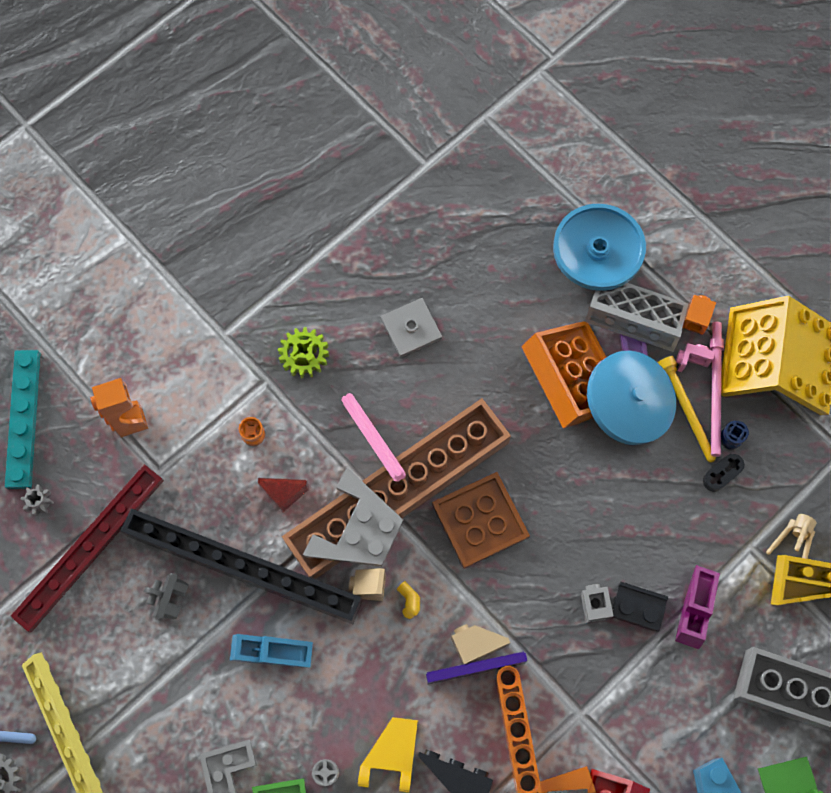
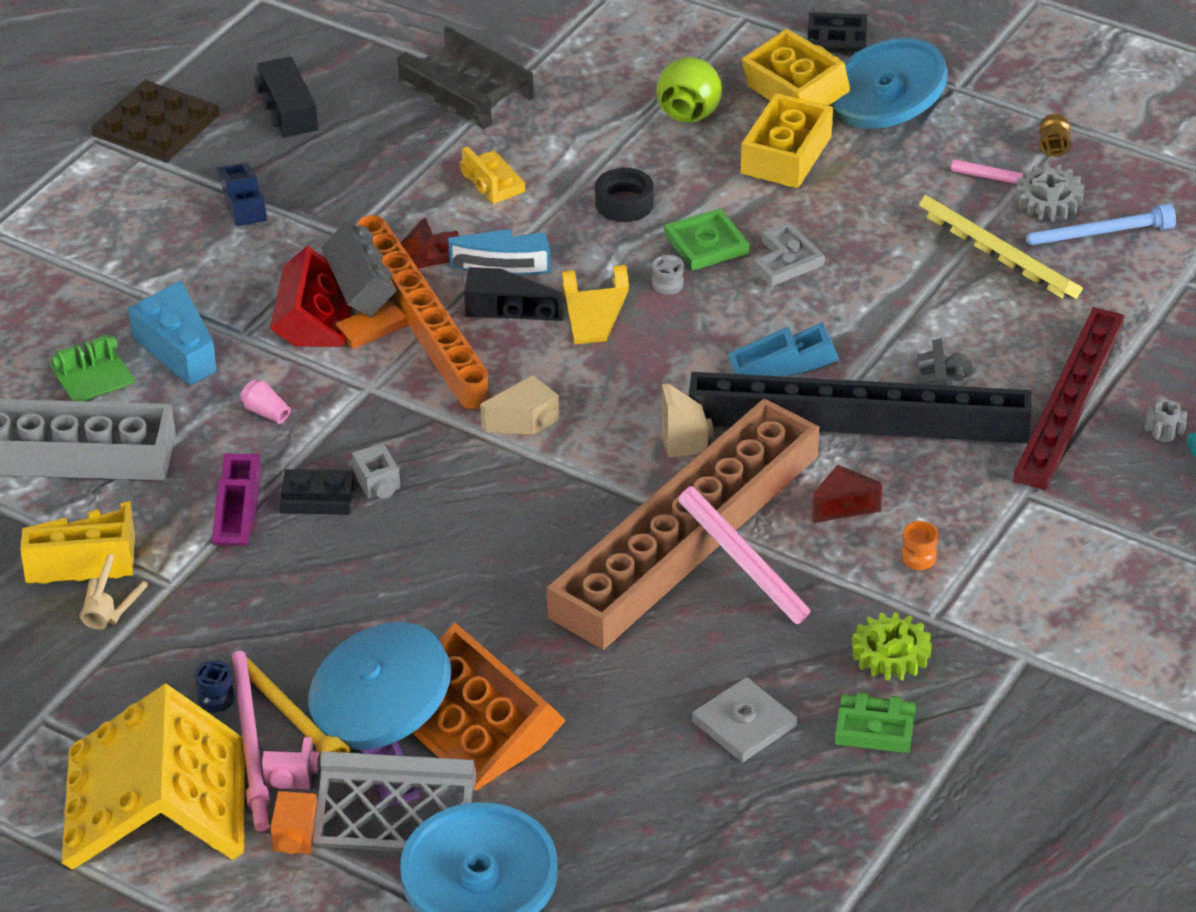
camera: 165 degrees right, 30 degrees down
(117, 409) = (1102, 514): orange arch -> none
(338, 294) = (875, 722): none -> bright green plate
(368, 531) = (706, 444): light grey wing -> none
(412, 601) = (623, 437): yellow arm -> none
(476, 667) = (554, 373): dark purple tile -> none
(480, 520) = (555, 523): dark orange plate -> none
(663, 709) = (264, 401): none -> bright pink cone
(720, 468) = (219, 647): black beam -> none

